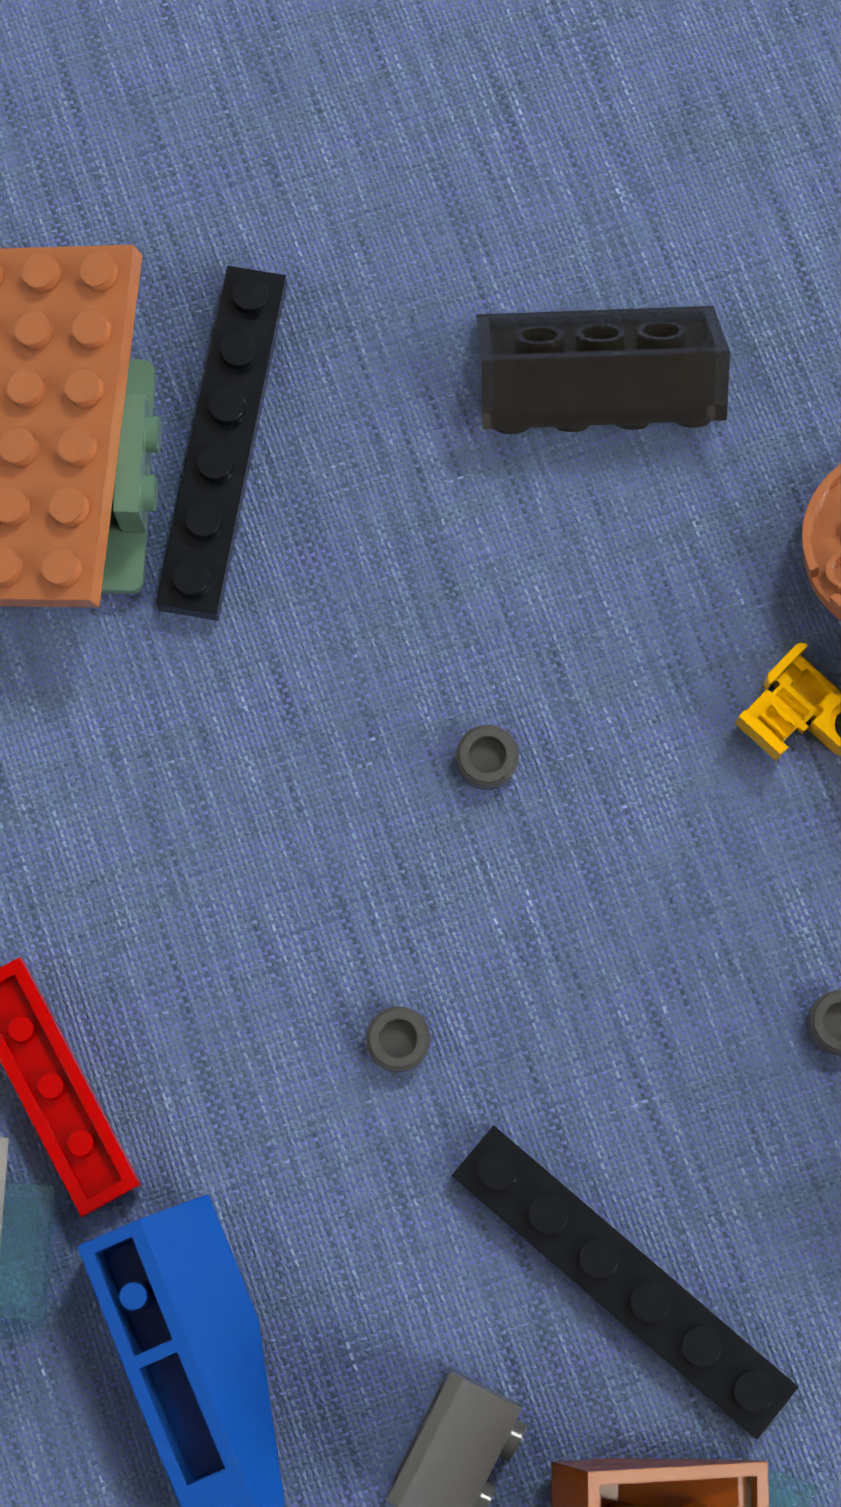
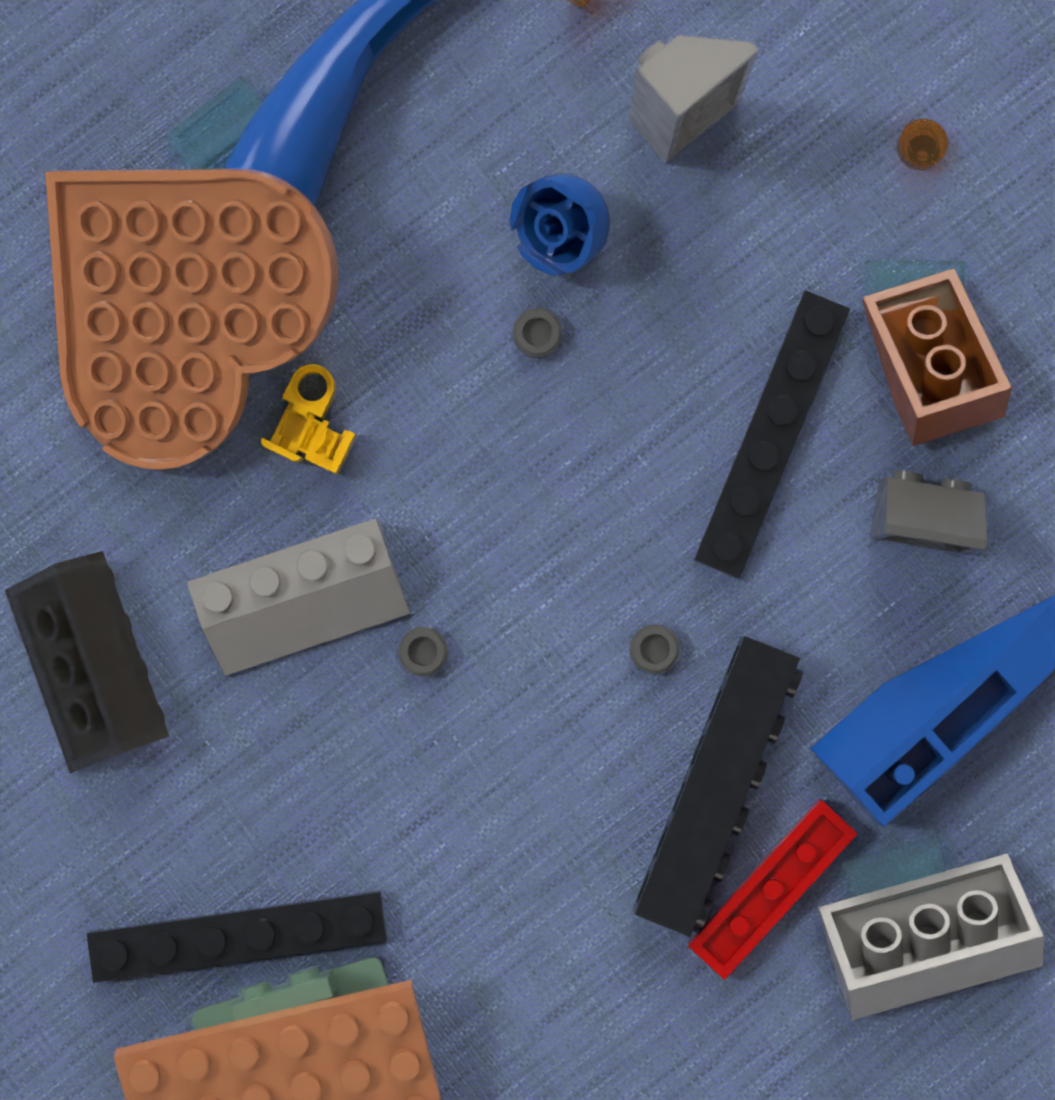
camera: 105 degrees left, 10 degrees up
(204, 1058) = (716, 786): none -> black brick
(600, 631) = (299, 597): none -> light grey slope

